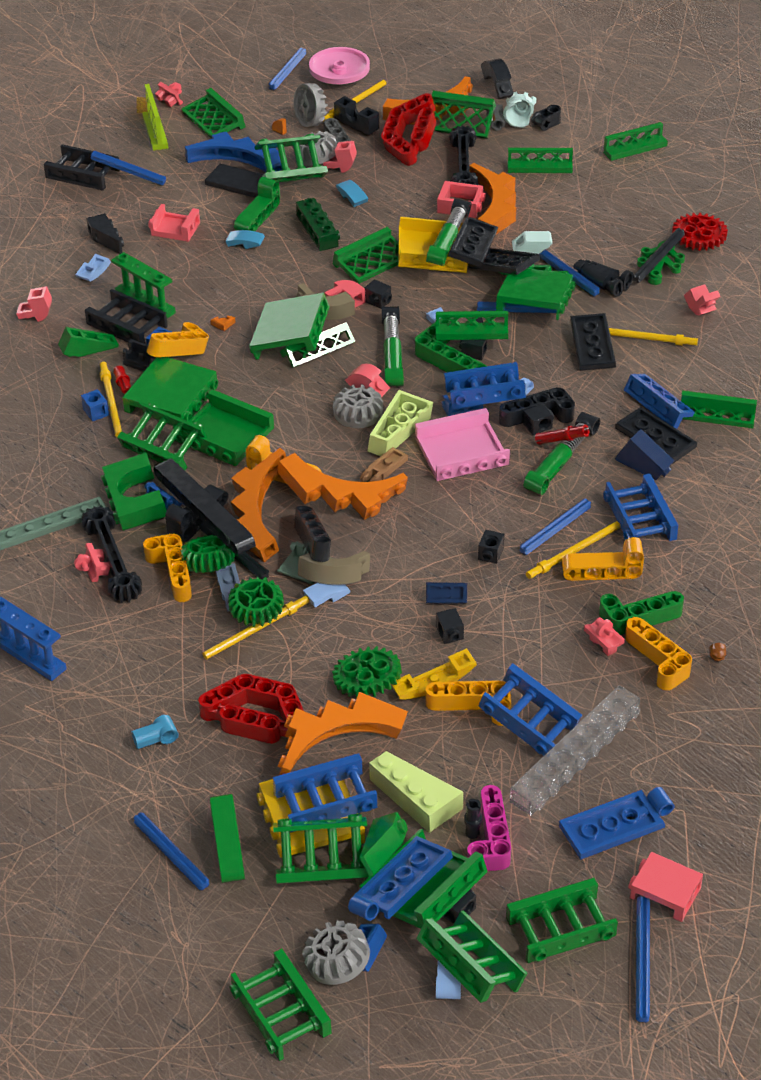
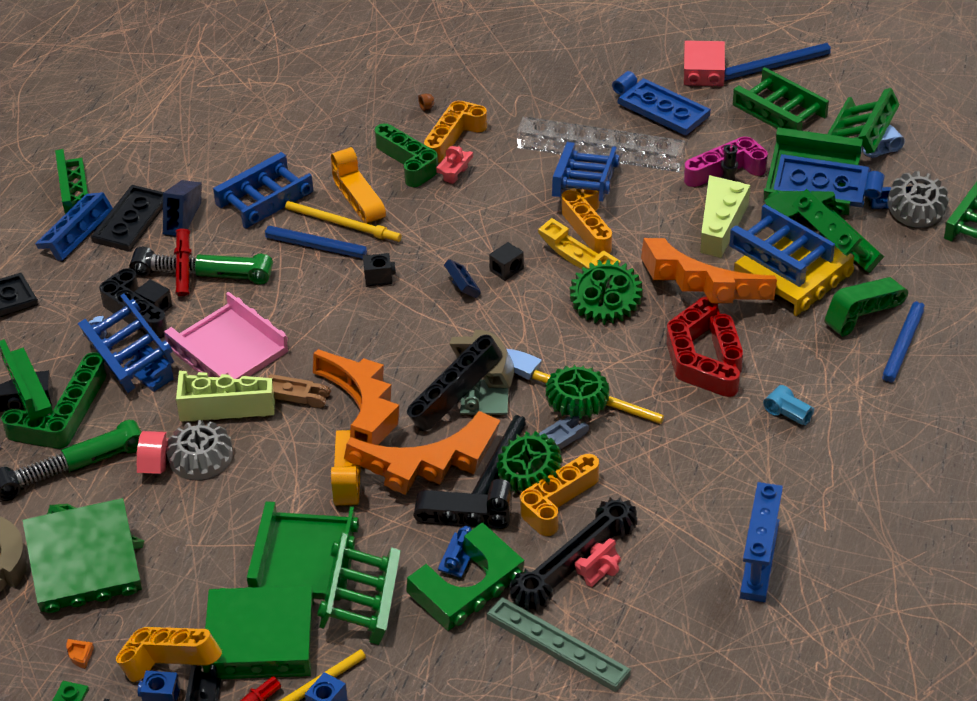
camera: 115 degrees left, 0 degrees up
(204, 507) = (470, 482): black beam -> none

